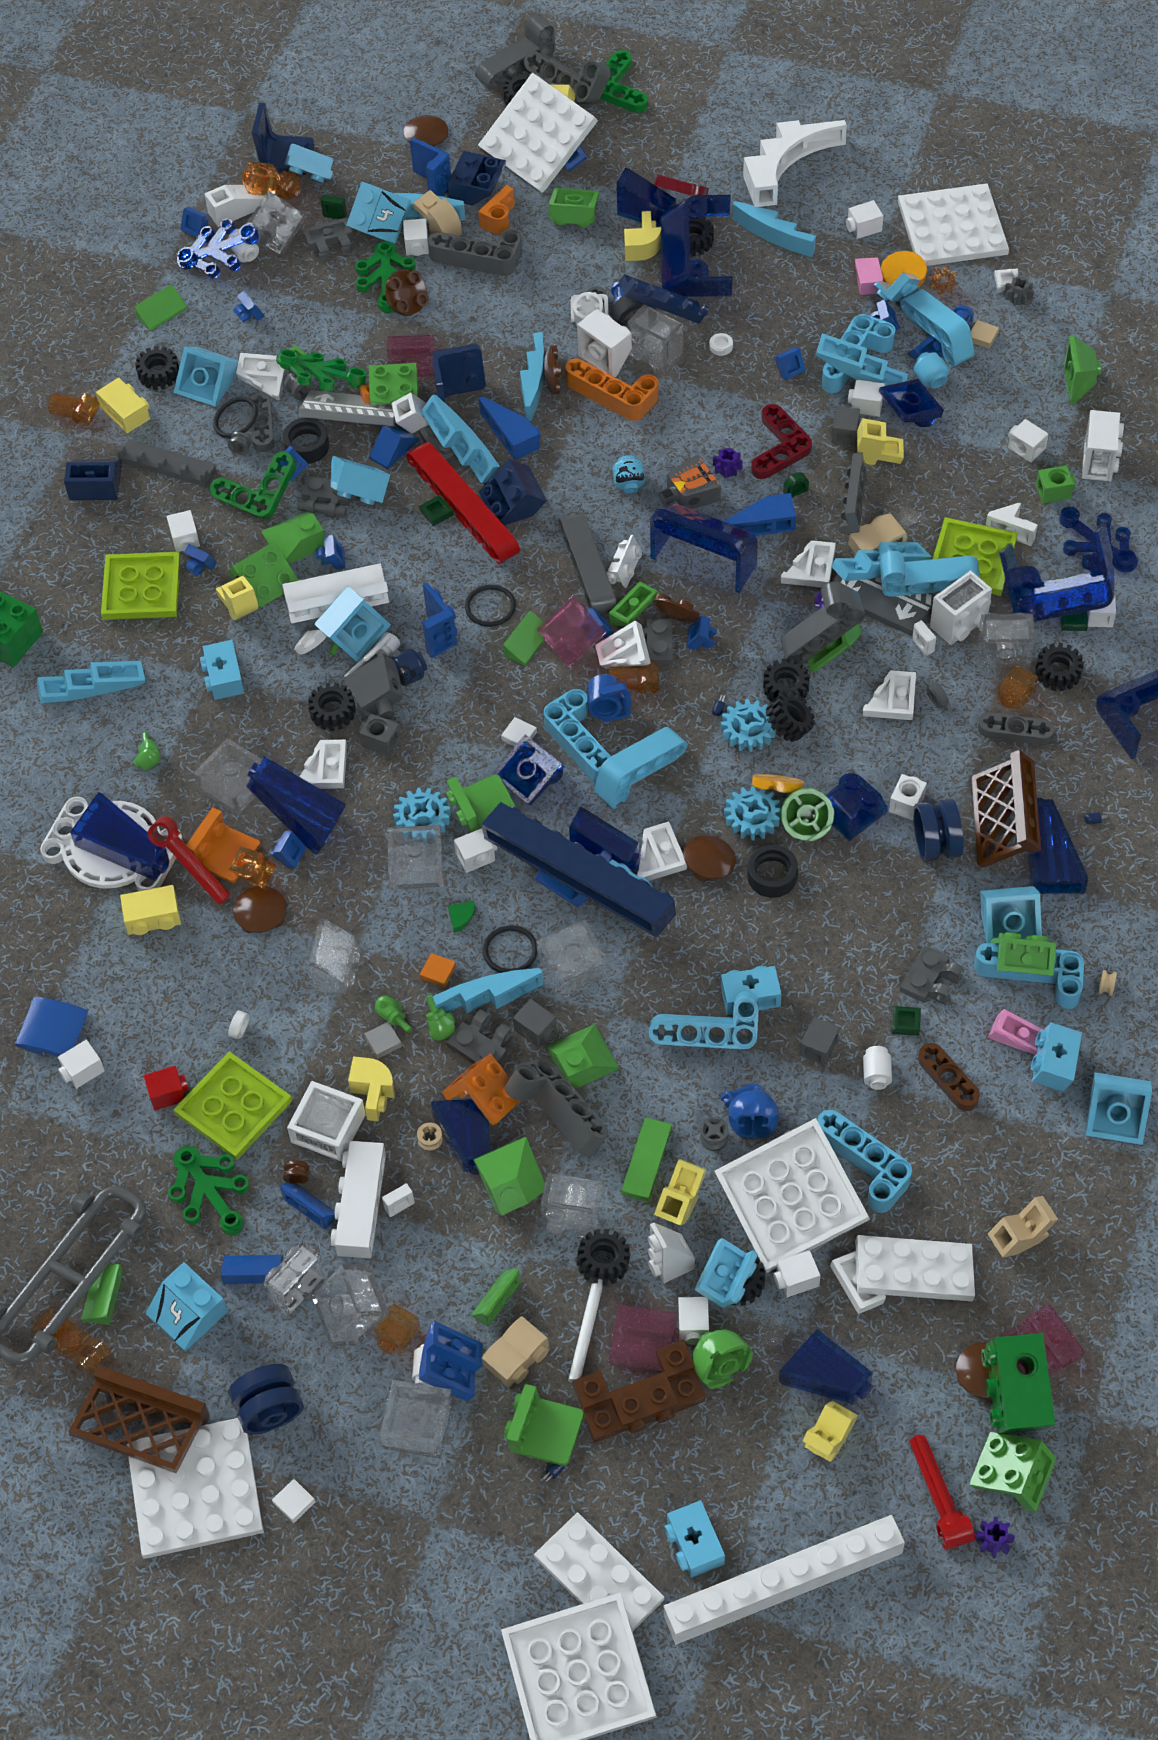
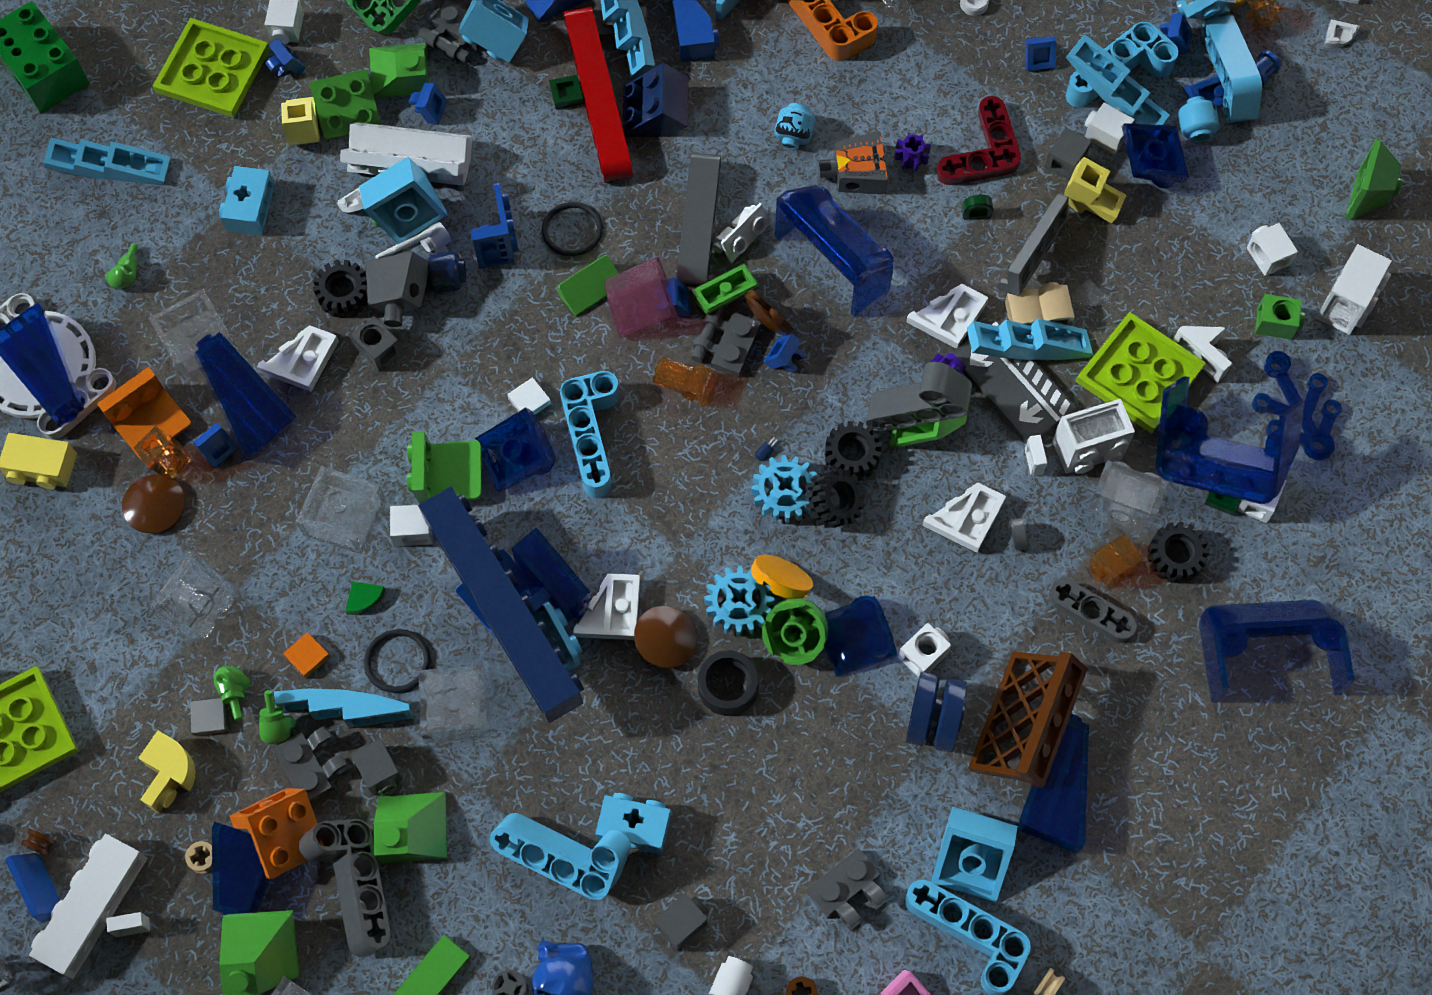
camera: 20 degrees right, 10 degrees up
(186, 857) = (77, 382): red axle -> none
(238, 1024) = (63, 636): white tile -> none
(326, 1120) = (94, 796): piece -> none
(422, 809) = (377, 444): medium azure gear -> none
(605, 698) = (639, 394): blue piece -> none
(624, 648) = (688, 340): white wing -> none
(636, 763) = (637, 489): medium azure beam -> none
(767, 516) = (924, 234): blue slope -> none
(906, 1020) = (794, 934): dark green tile -> none
(922, 576) = (1071, 380): medium azure beam -> none
(984, 334) = (1281, 94): tan tile -> none
(1019, 291) = (1347, 55): dark grey gear -> none
(1025, 956) = (962, 914): bright green bracket -> none
(1094, 818) = (1132, 761): dark blue piece -> none

